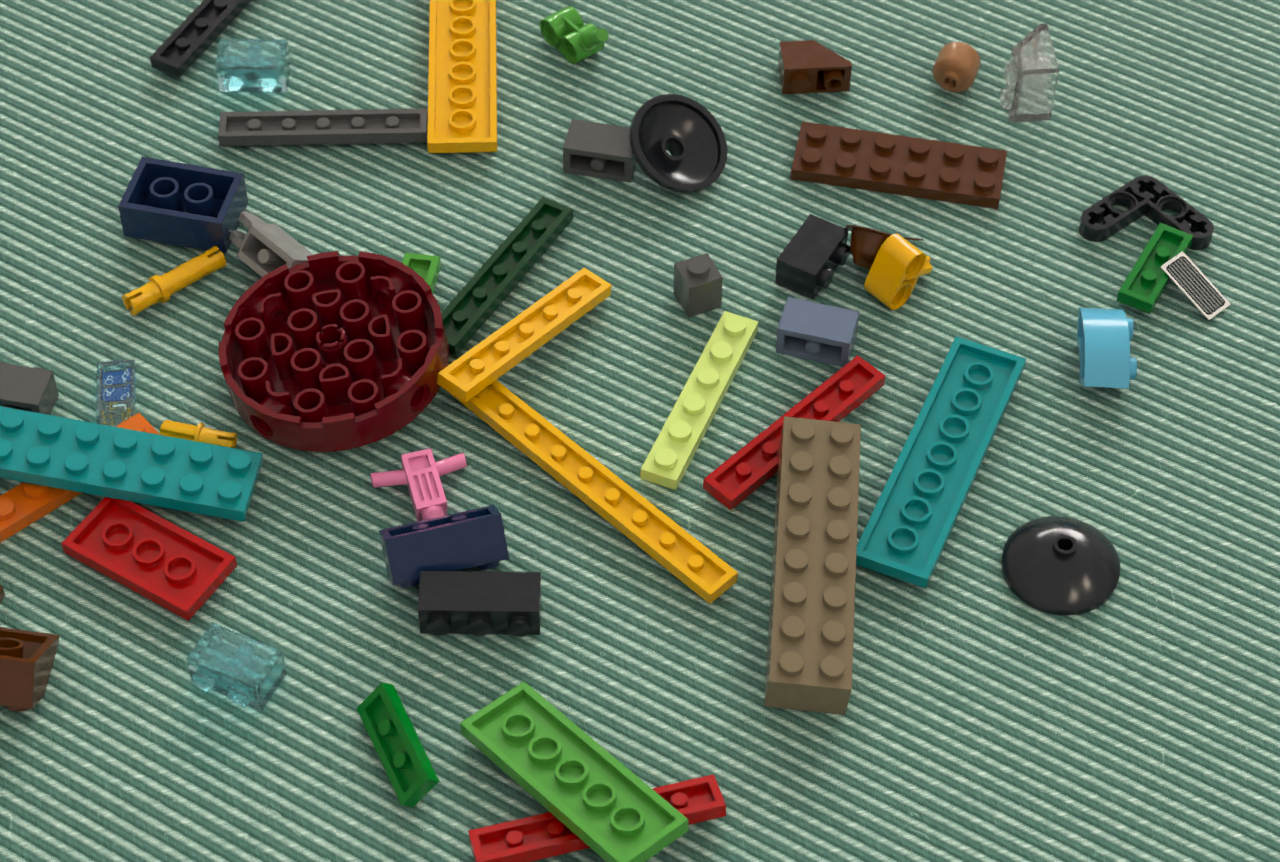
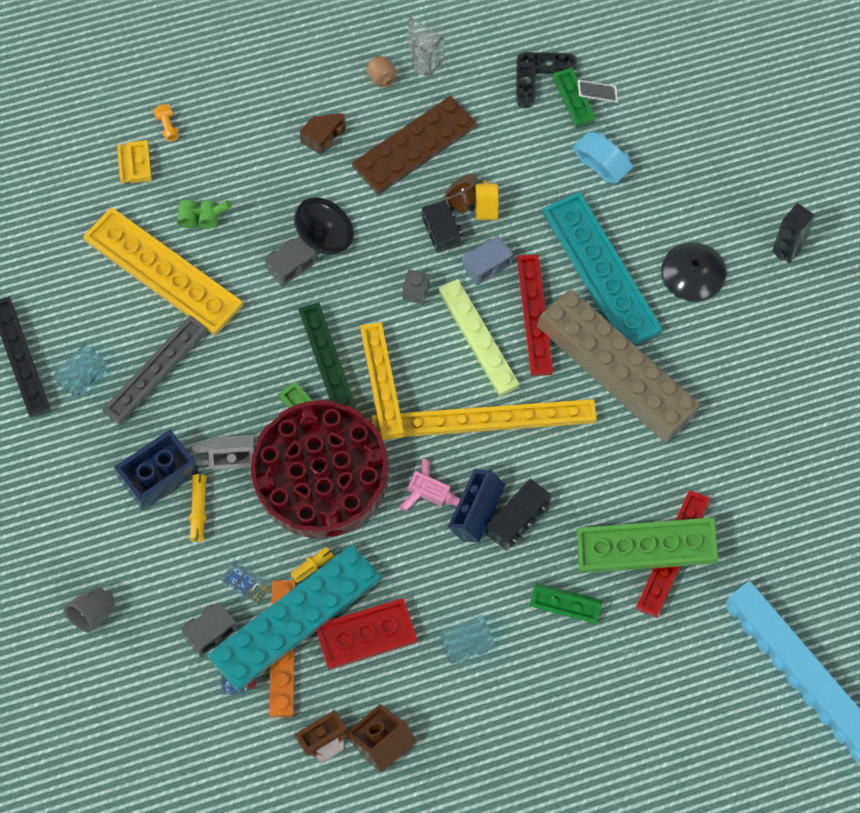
camera: 50 degrees left, 15 degrees up
(1235, 616) = (793, 233): none -> black brick

